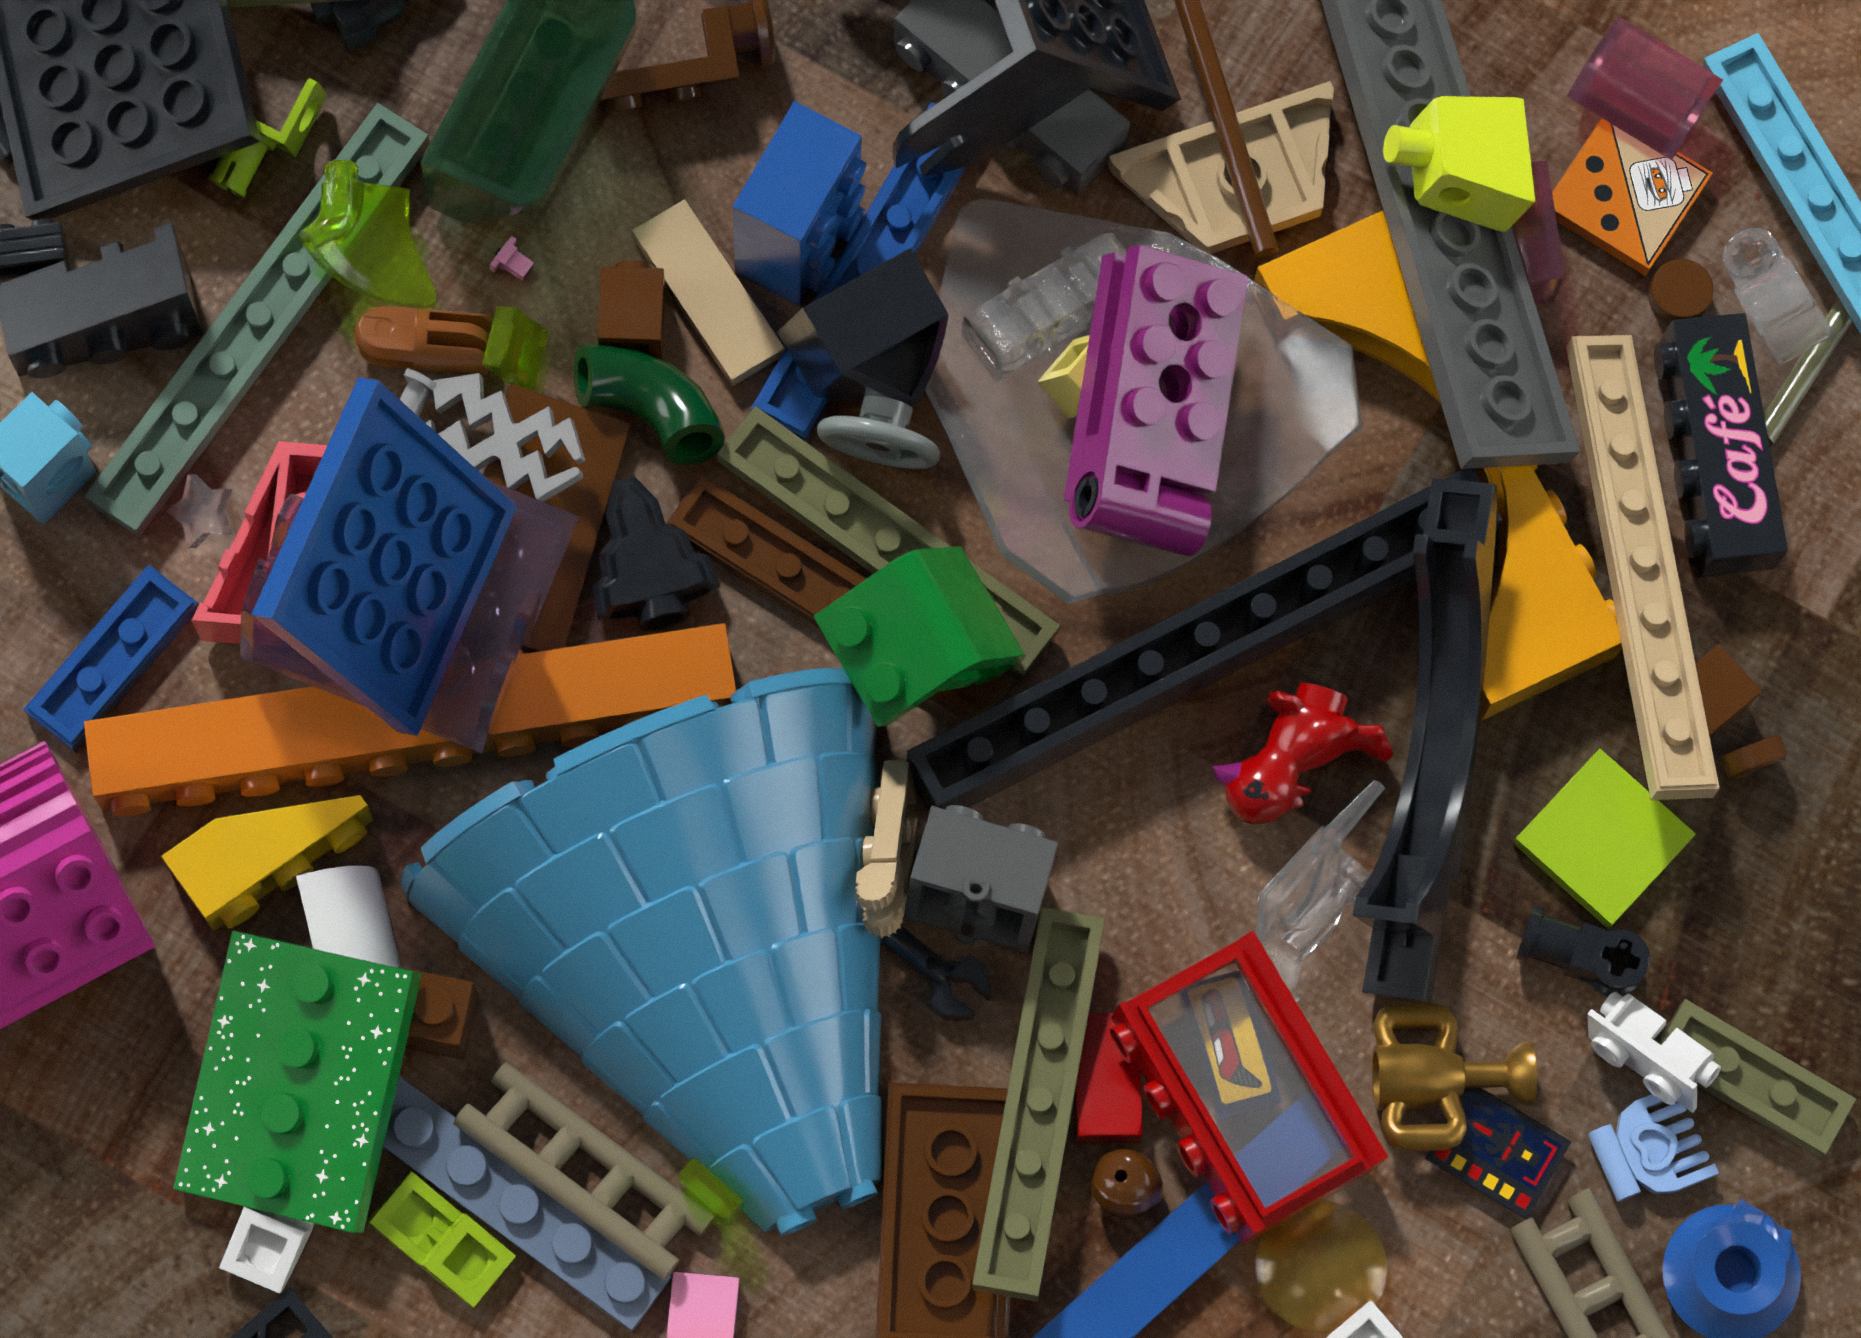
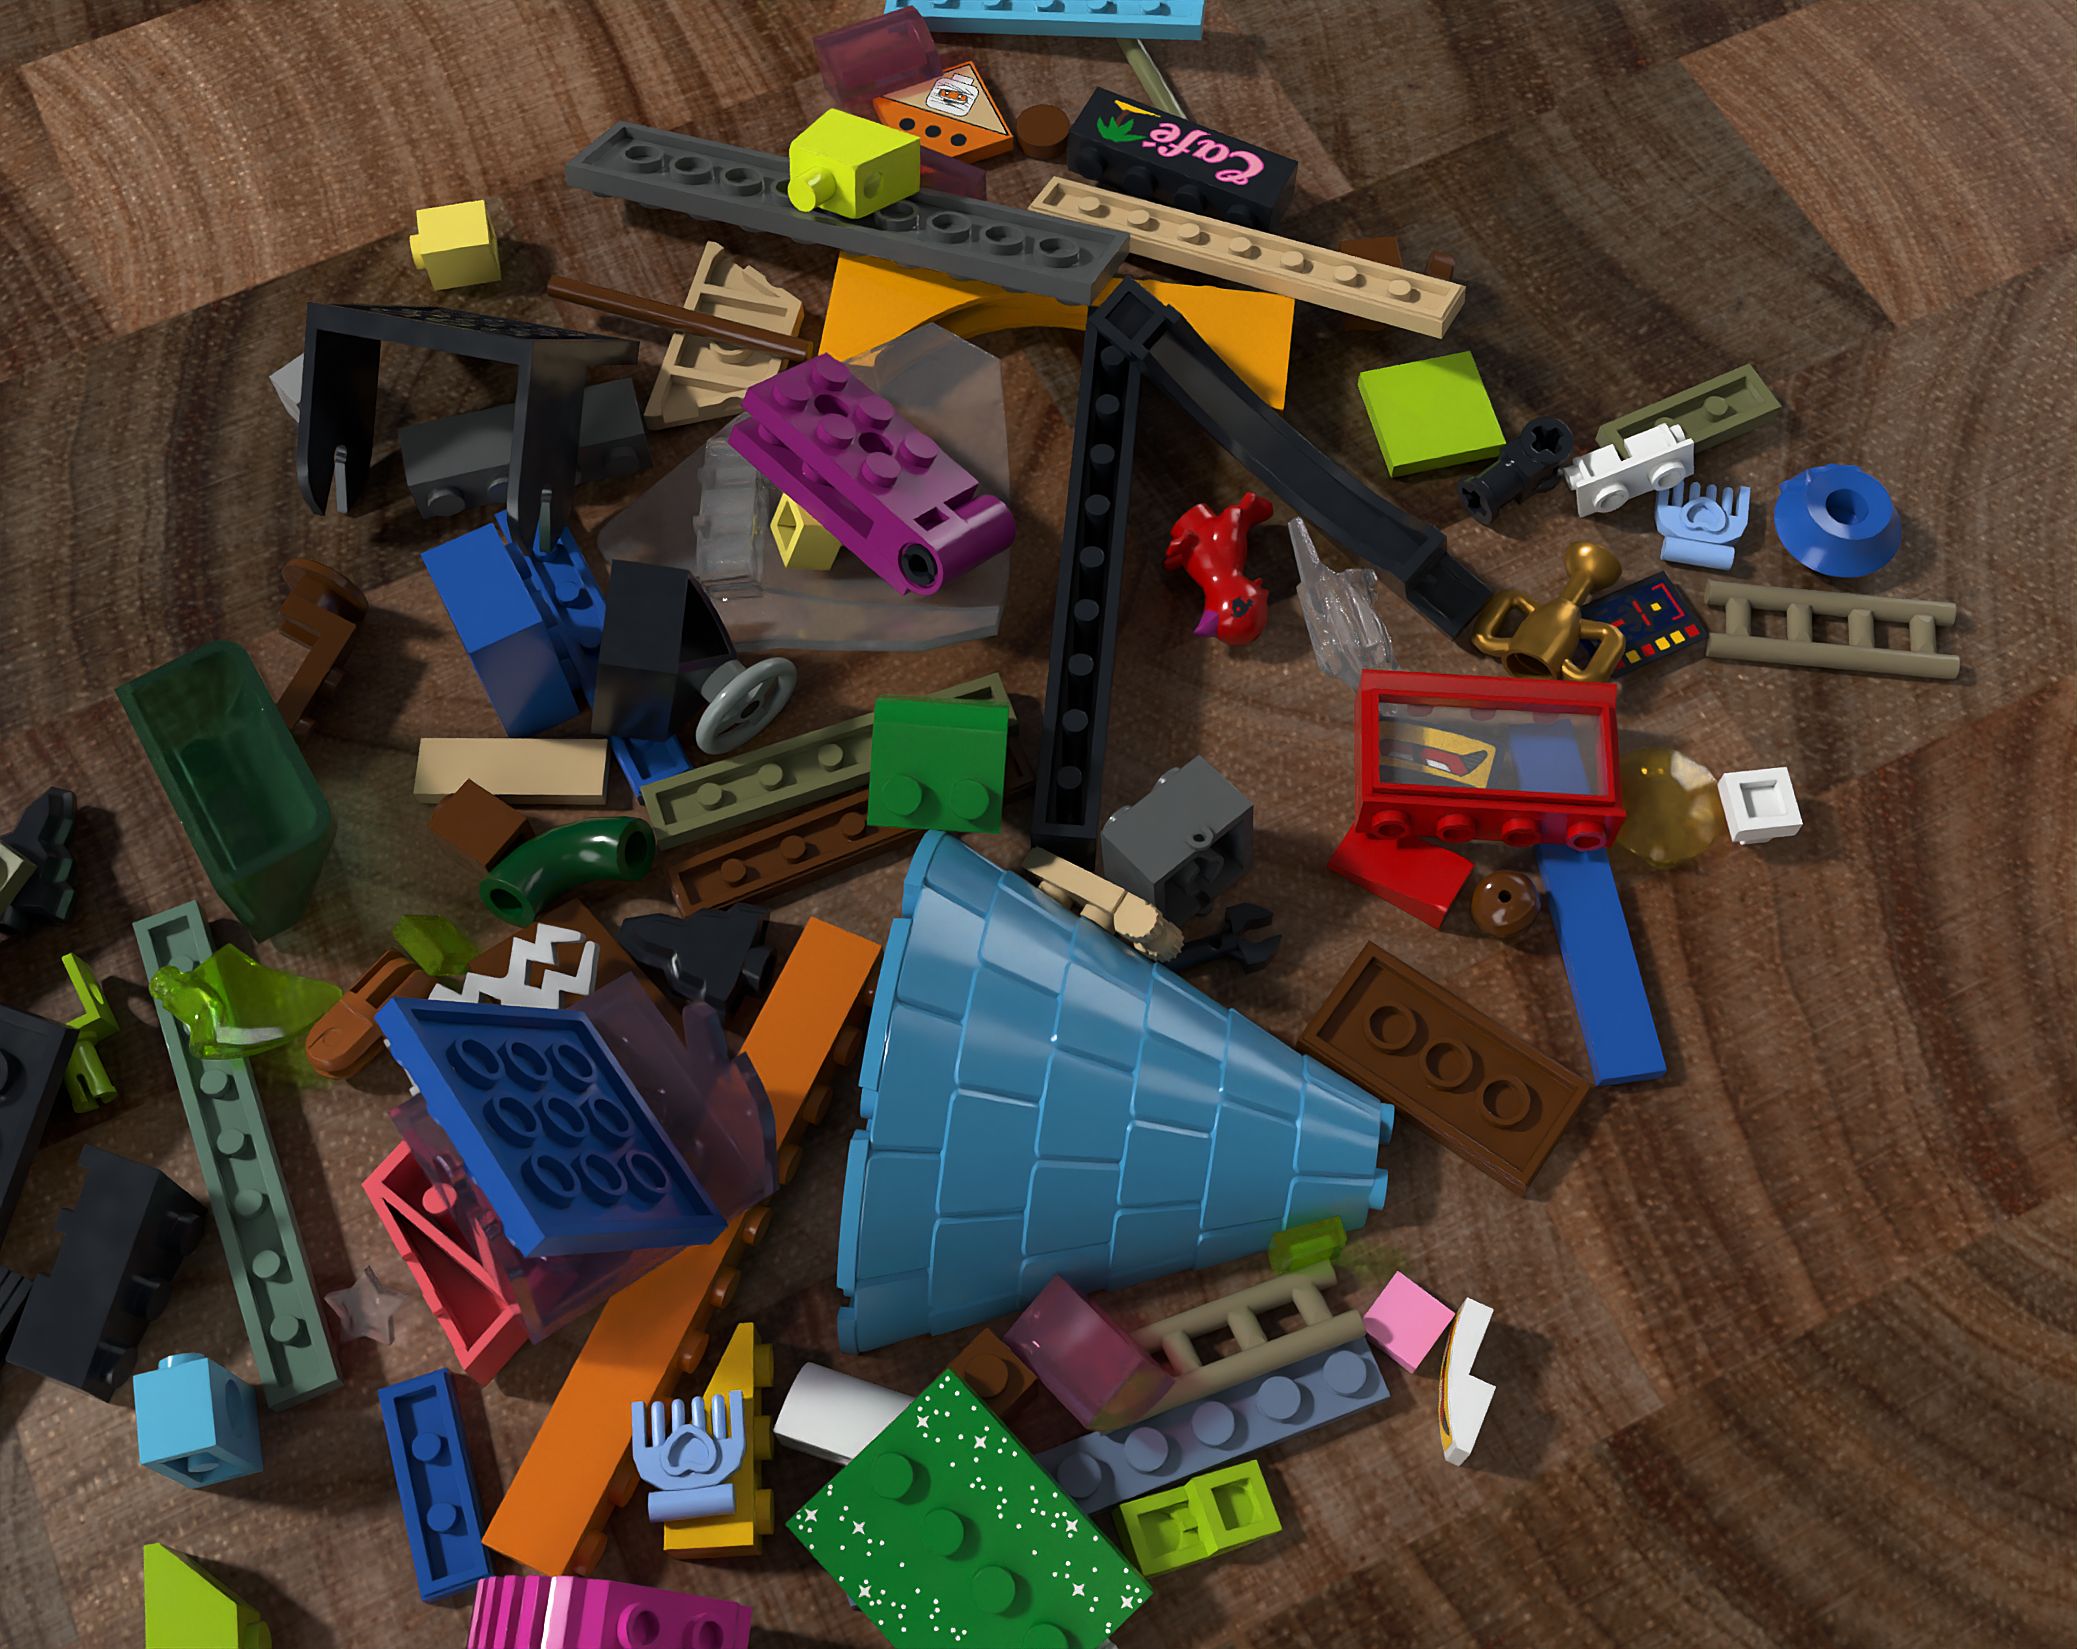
camera: 50 degrees left, 10 degrees down
(231, 829) = (689, 1463): none -> light blue piece
(503, 1074) = (1087, 1358): none -> clear pink brick
(511, 260) = (359, 907): bright pink piece -> none
(1038, 1105) = (1408, 931): olive plate -> none
(1774, 295) = (1096, 58): clear piece -> none

